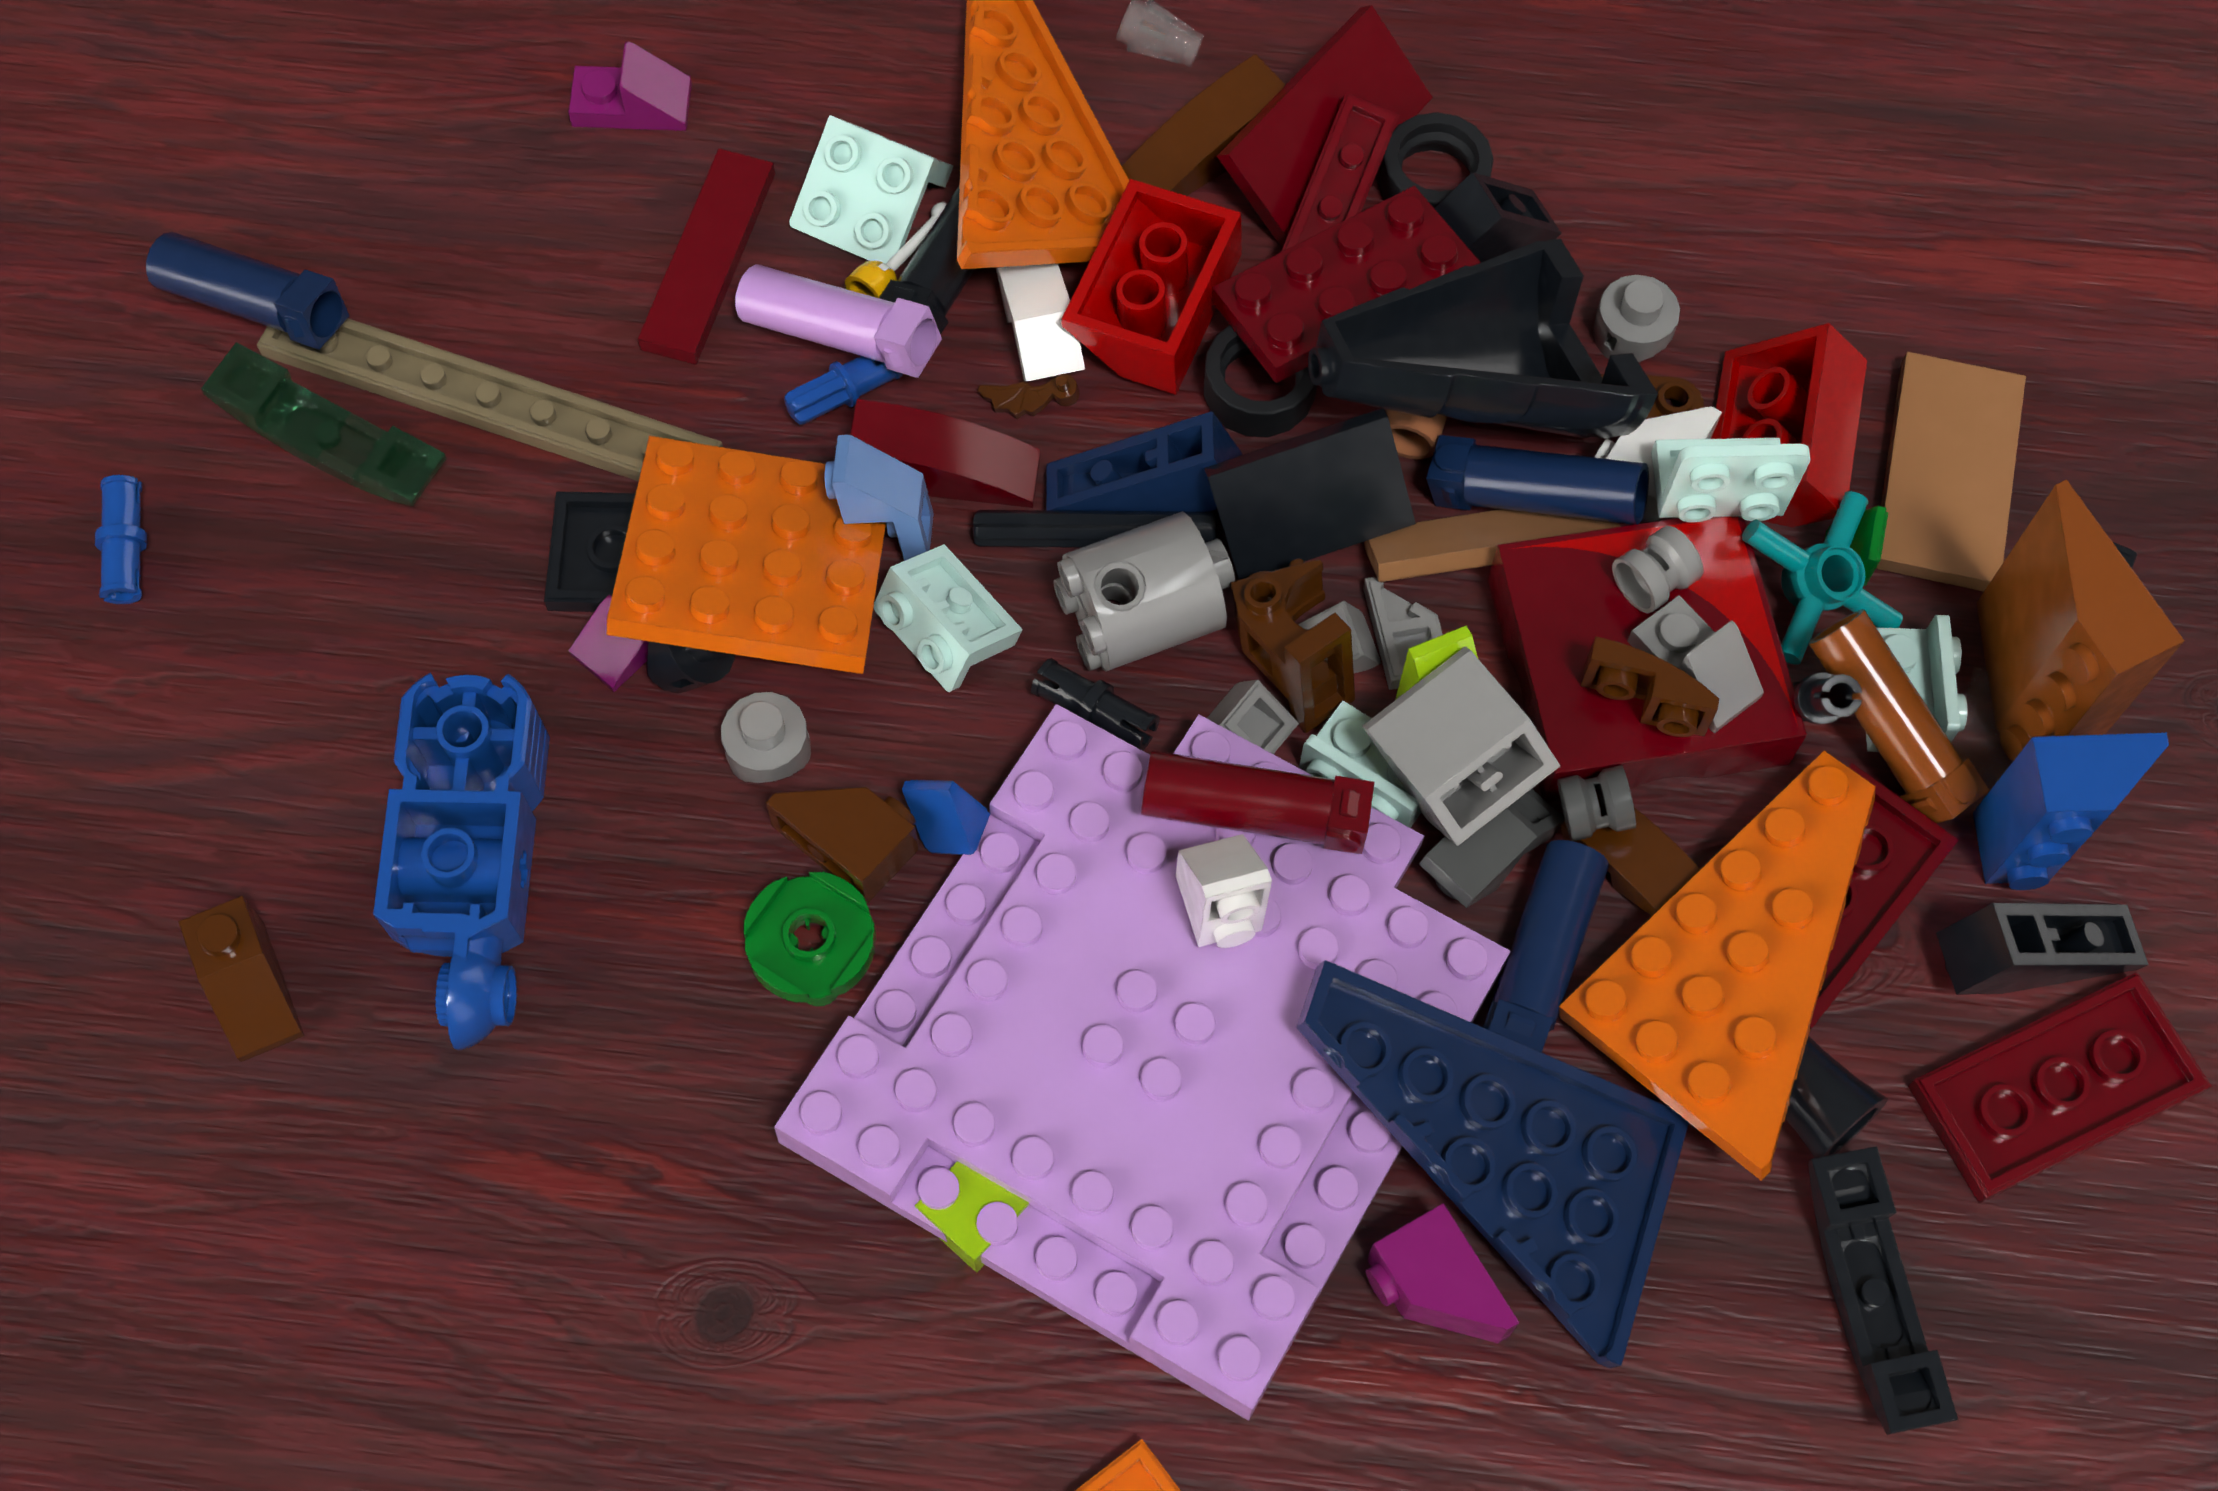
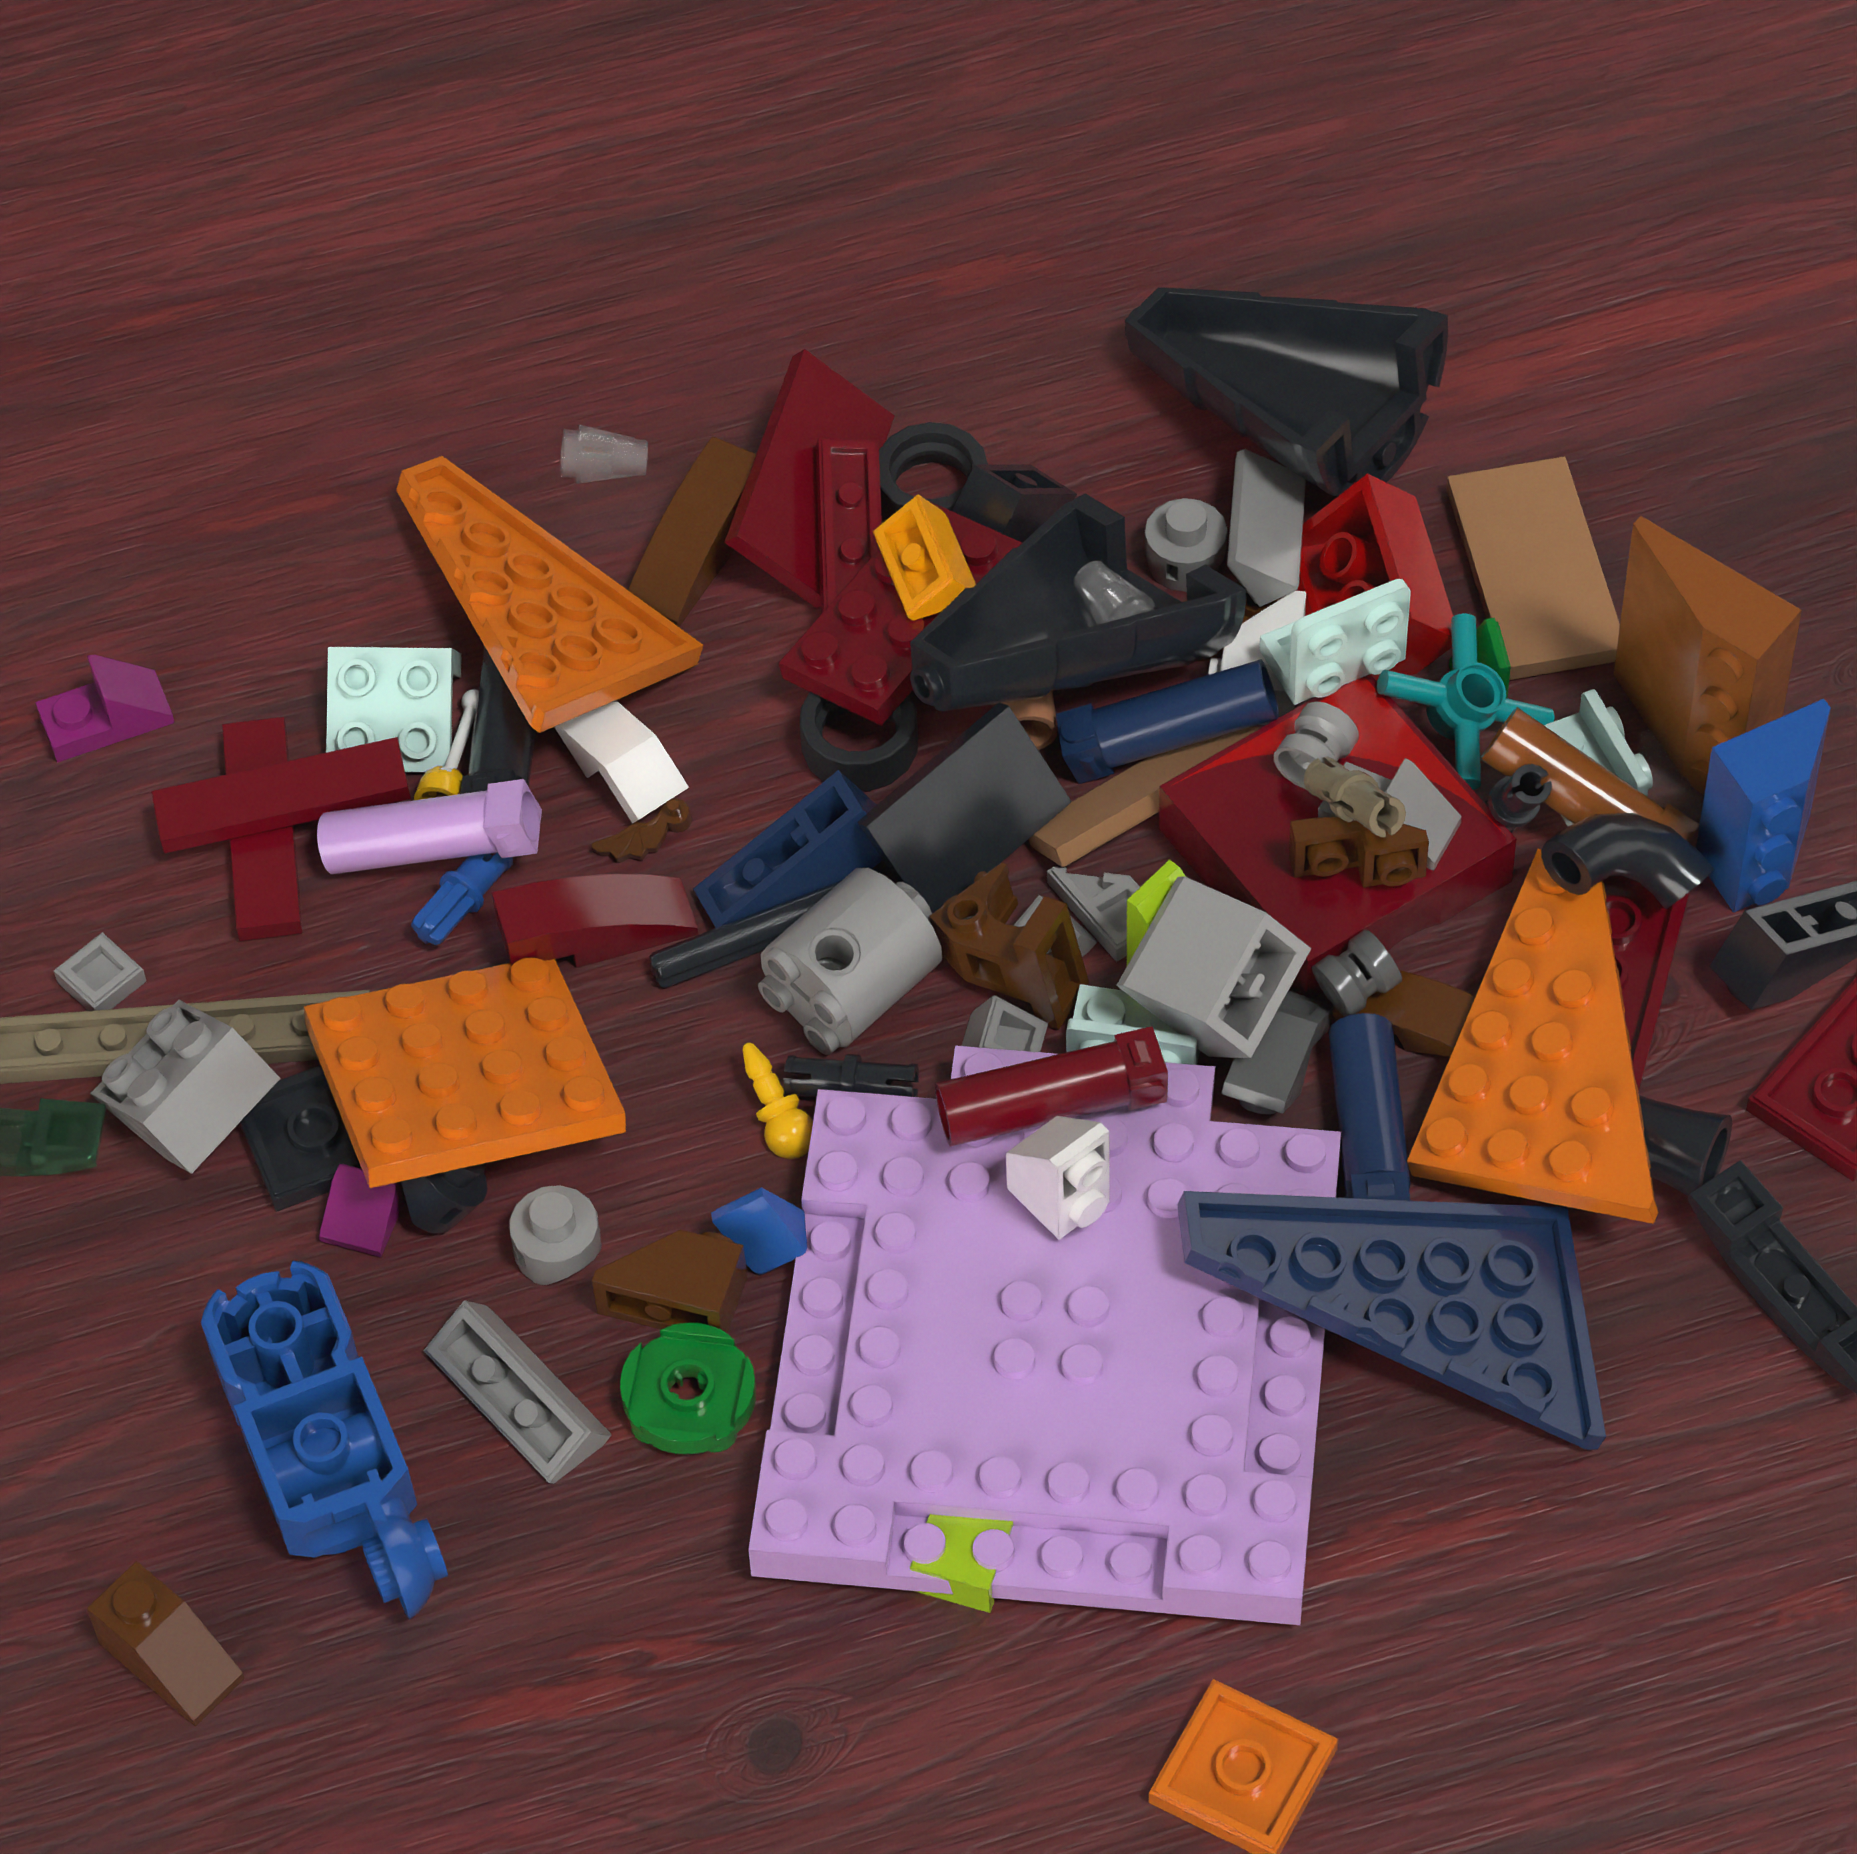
camera: 20 degrees left, 10 degrees down
(507, 332) = (100, 975): none -> light grey tile
(516, 465) = (185, 1084): none -> light grey slope
(666, 870) = (516, 1391): none -> light grey slope
(731, 232) = (279, 795): none -> dark red tile
(880, 489) = (556, 965): medium blue slope -> none
(944, 615) = (668, 1060): light aqua bracket -> none
(1019, 717) = (786, 1126): none -> yellow bar
(1152, 283) = (719, 682): red slope -> none
(1383, 242) = (923, 558): none -> light orange slope
(1439, 1279) = (1413, 1434): magenta slope -> none
(1538, 346) = (1108, 594): none -> clear cone
(1666, 639) = (1354, 796): none -> dark tan pin
(1713, 335) = (1266, 527): none -> light grey slope
(1812, 207) = (1303, 378): none -> black cone
(1908, 791) = (1628, 848): none -> black cylinder

